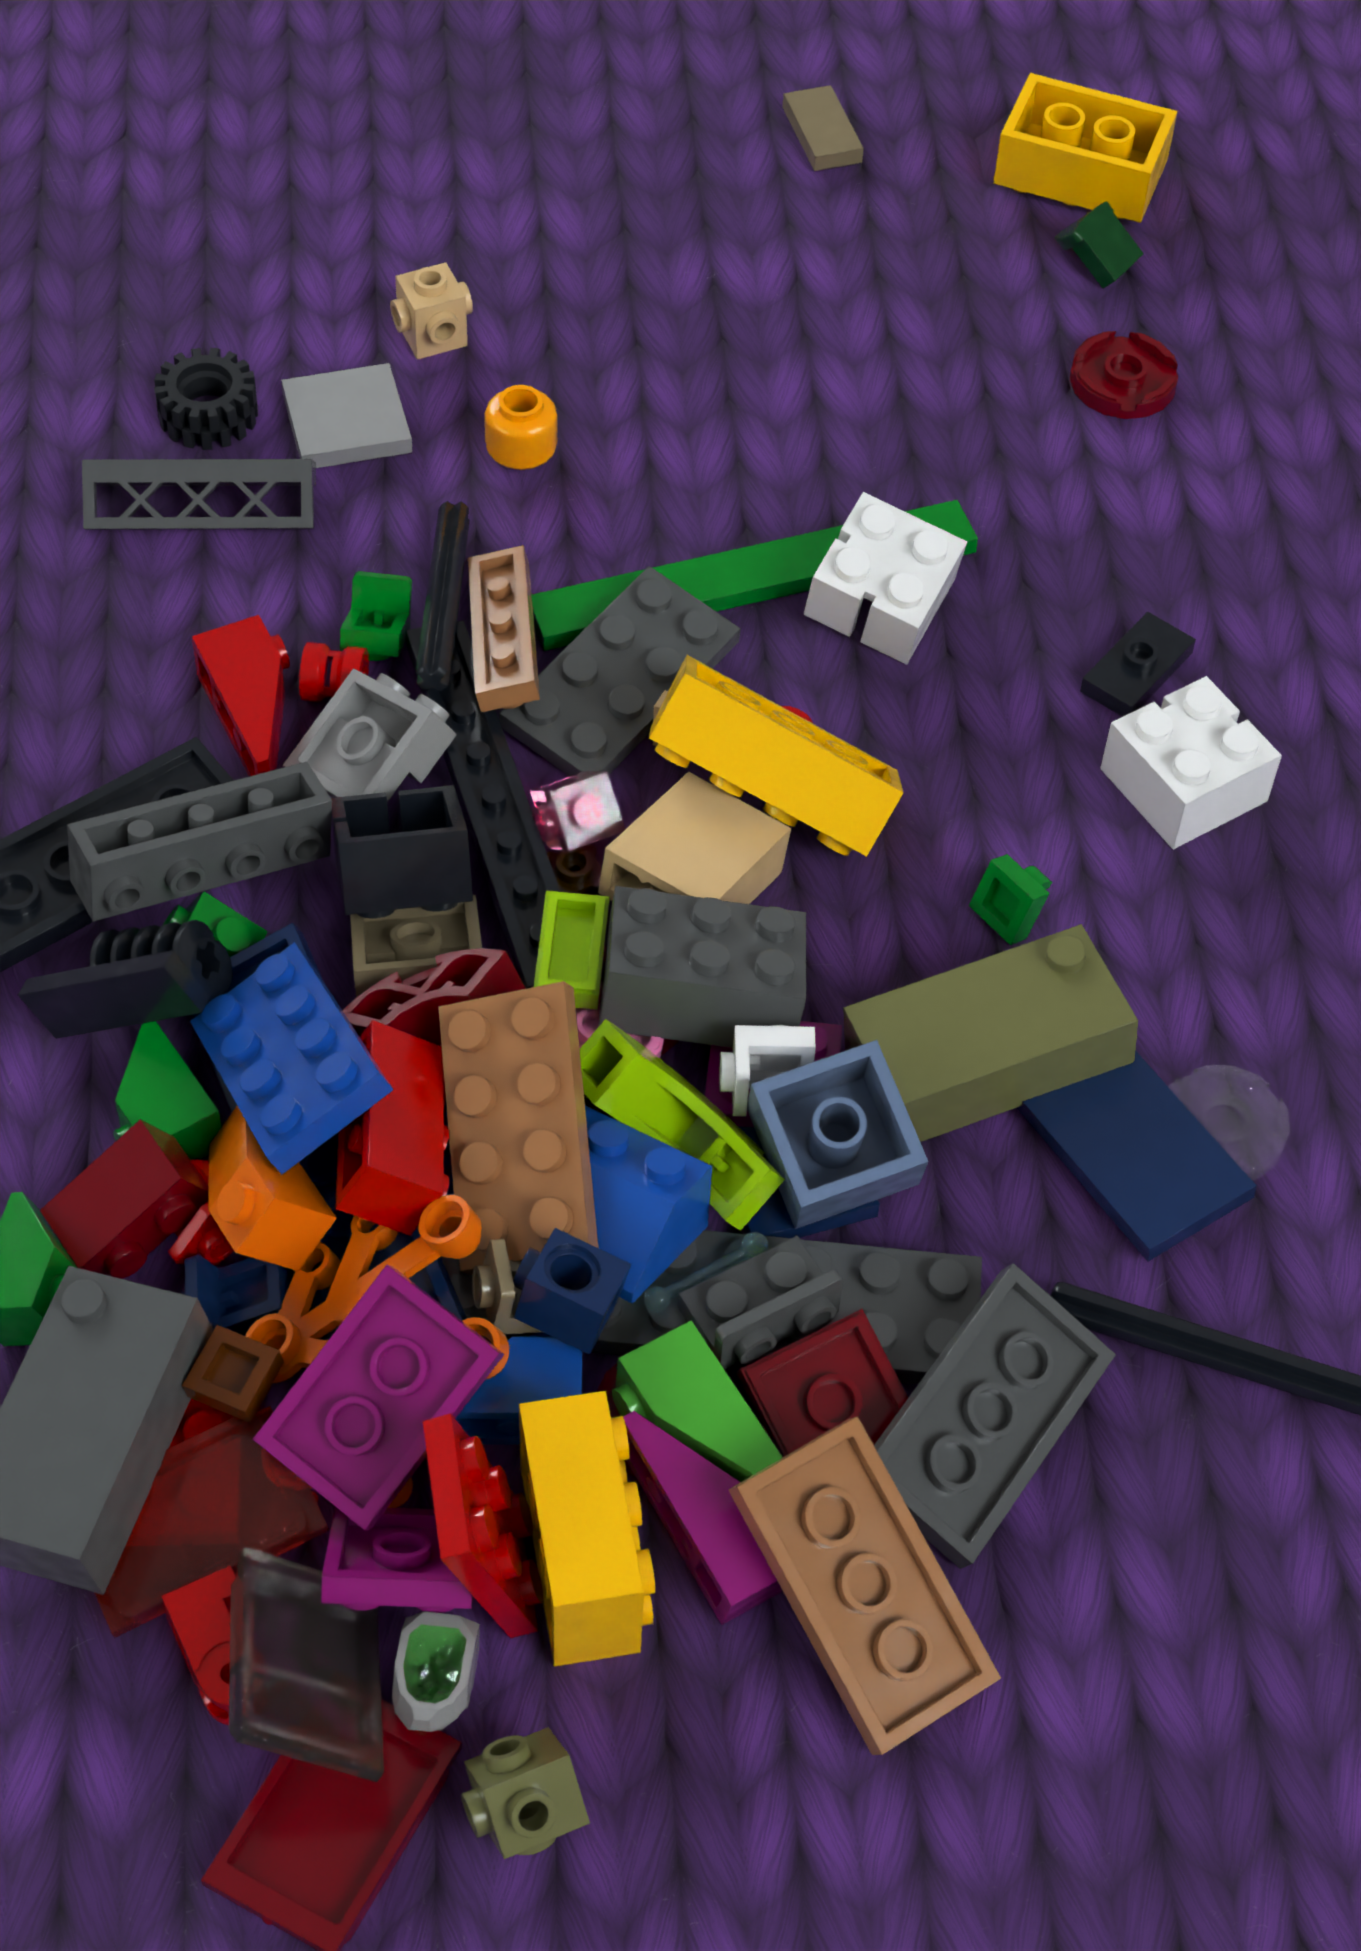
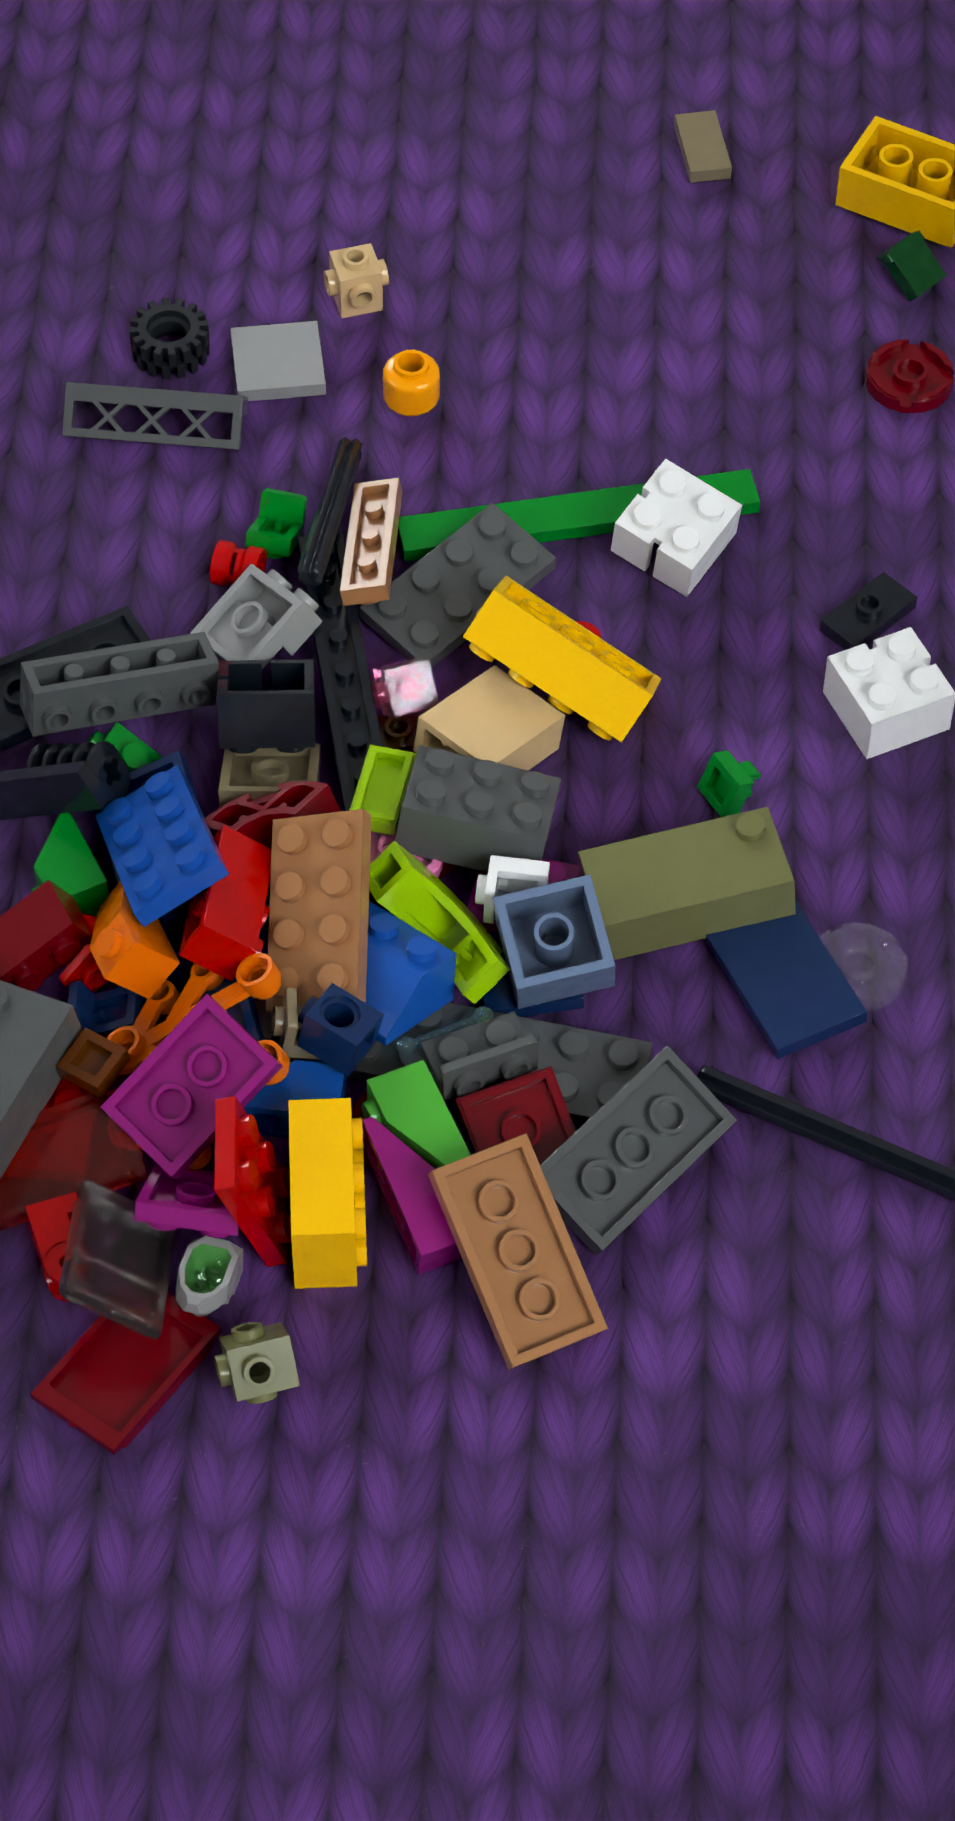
camera: 10 degrees right, 0 degrees up
(245, 684) = (171, 570): red slope -> none

